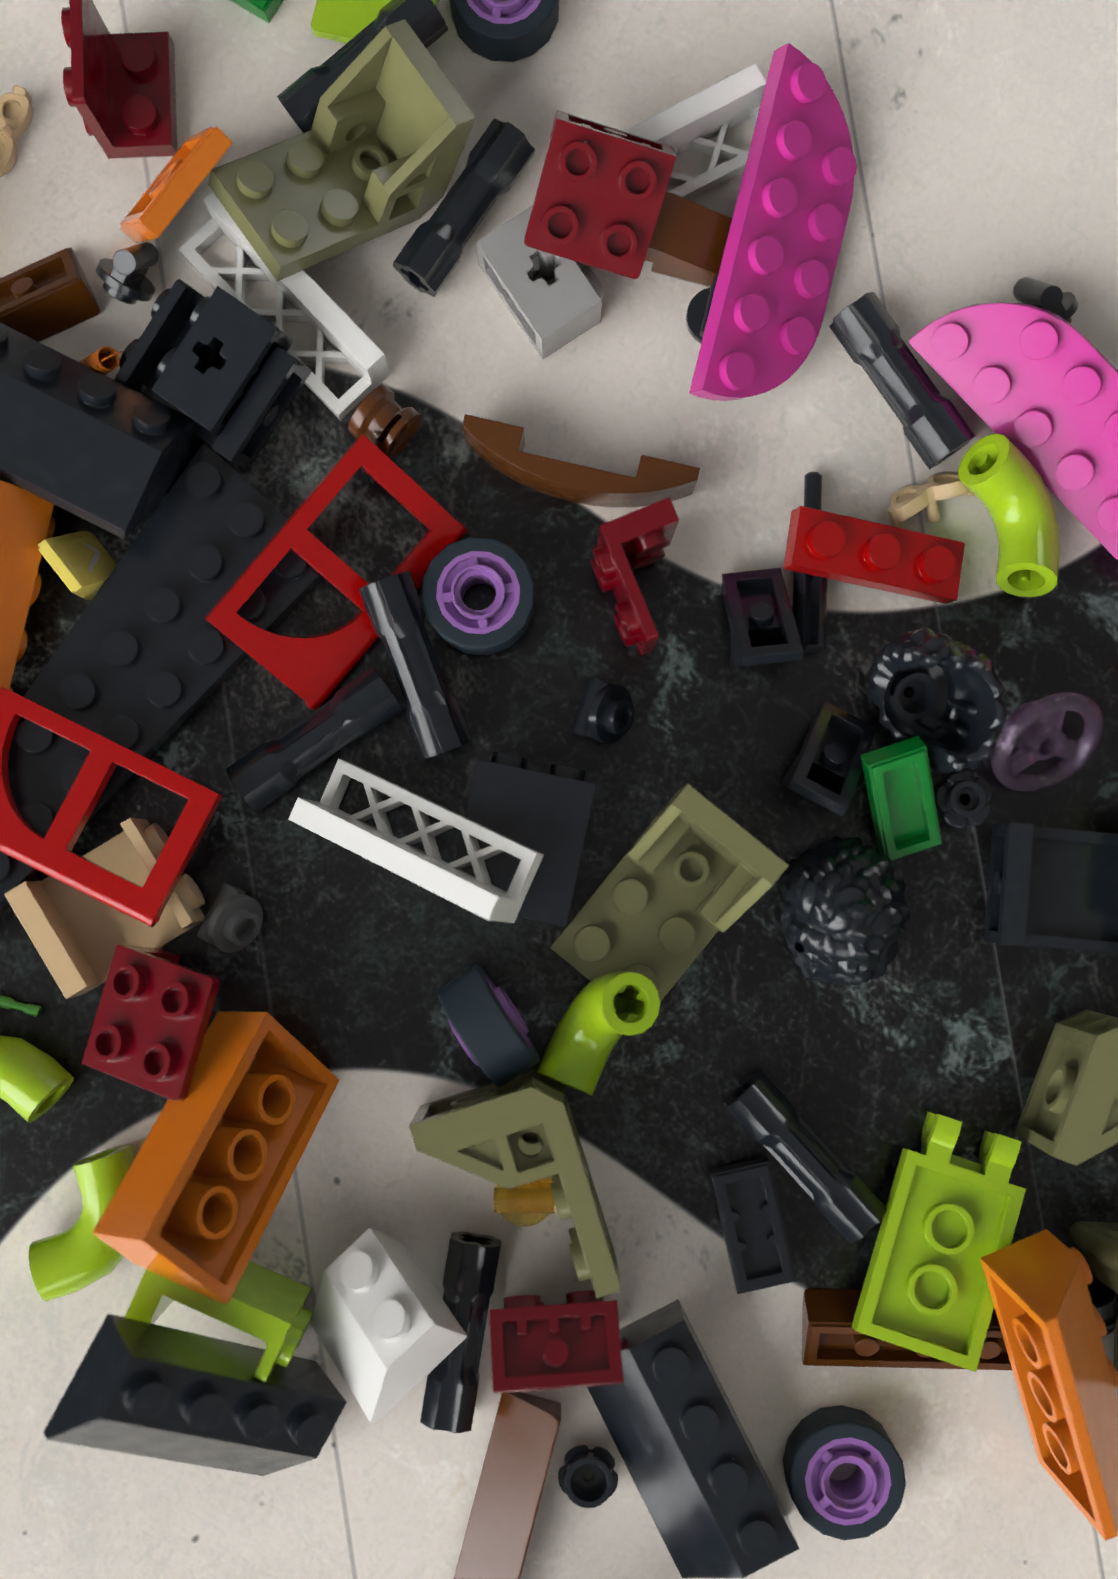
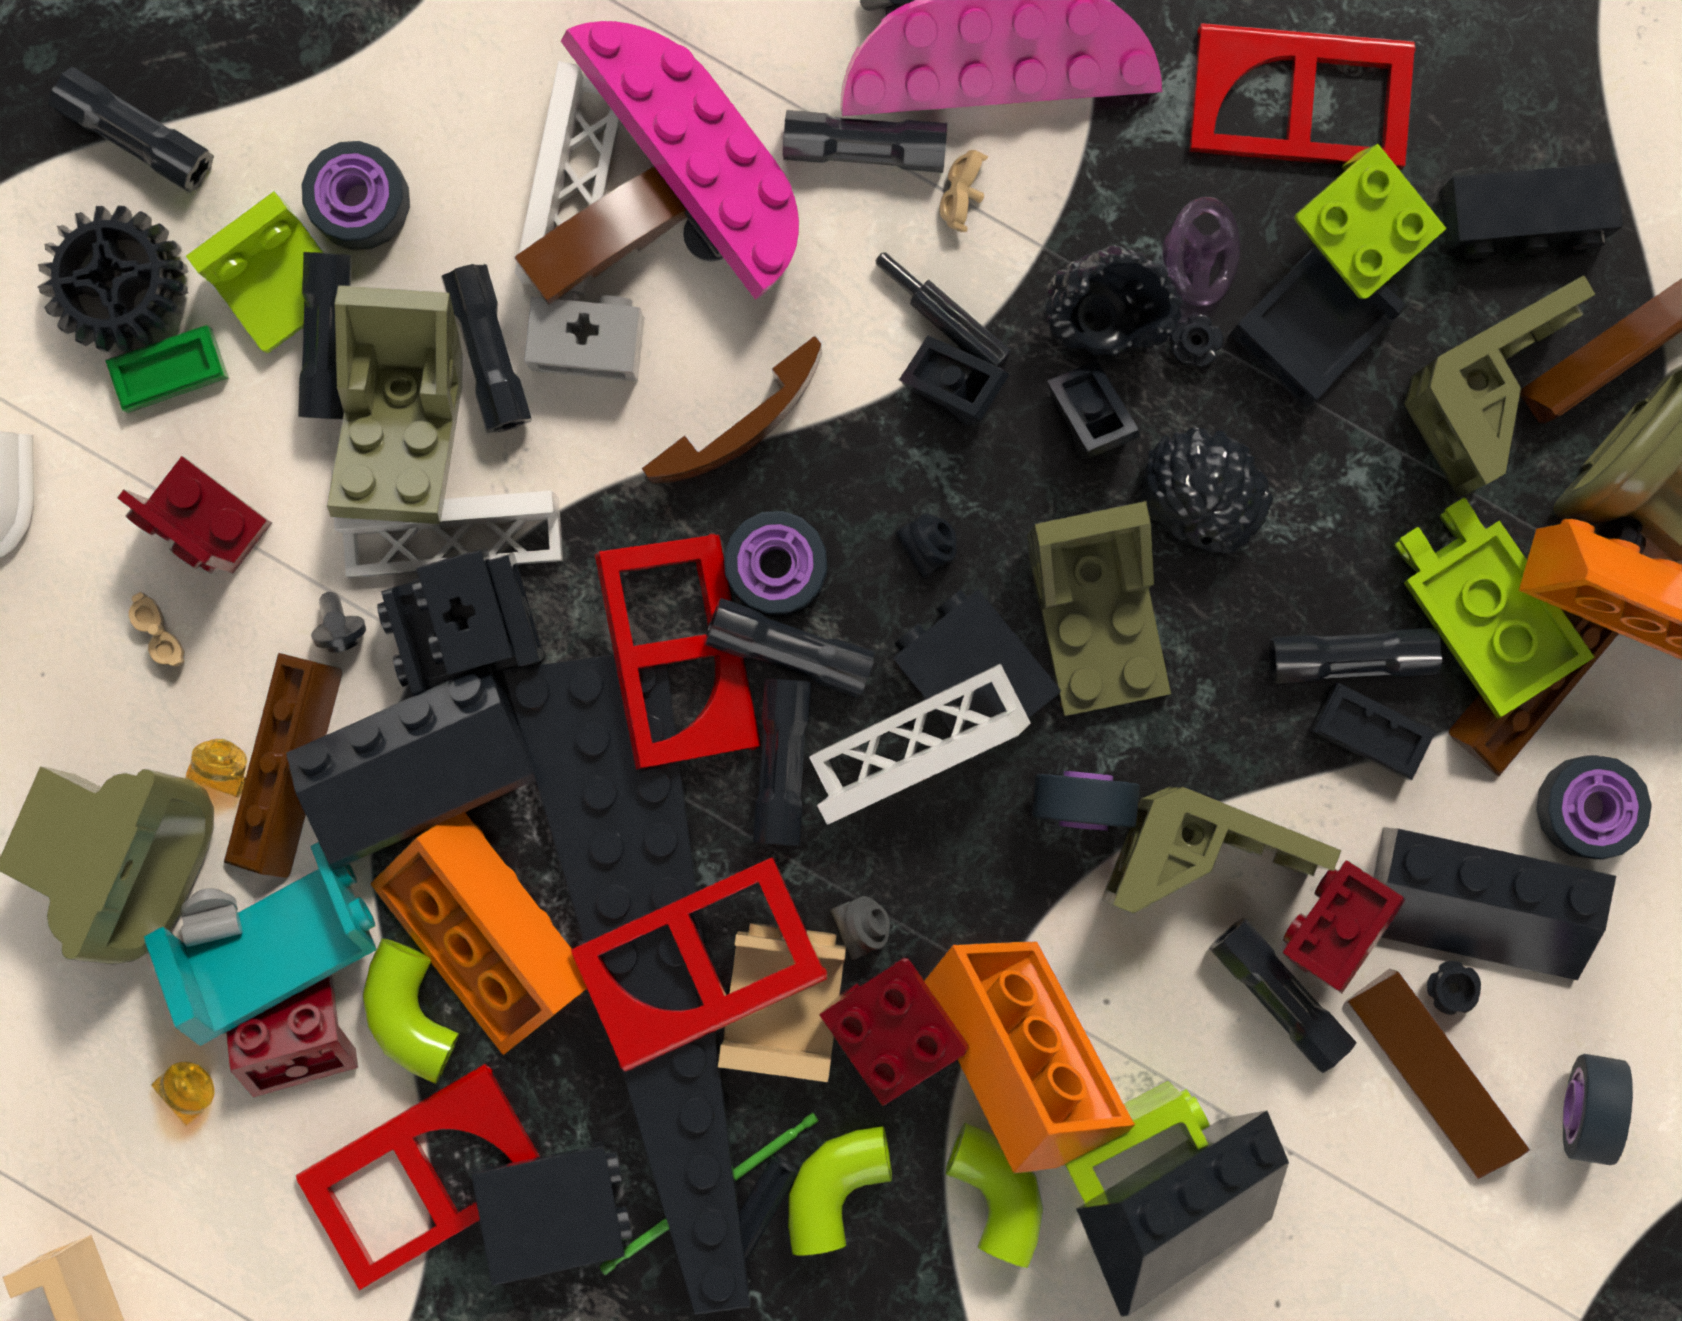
camera: 45 degrees left, 0 degrees up
(79, 562) = (519, 827): light yellow slope -> none
(103, 360) = (390, 695): orange piece -> none
(175, 184) = (307, 541): orange tile -> none
(382, 1321) = (1231, 1043): white slope -> none
(385, 421) = (590, 529): reddish brown wheel -> none
(526, 1203) = (1229, 876): clear yellow plate -> none
(593, 1025) = (1145, 728): lime cylinder -> none
(599, 195) = (566, 247): dark red bracket -> none
(637, 540) = (834, 454): dark red bracket -> none
(873, 555) = (973, 263): red plate -> none
(901, 798) = (1160, 384): green tile -> none
(1020, 512) = (1026, 135): lime cylinder -> none

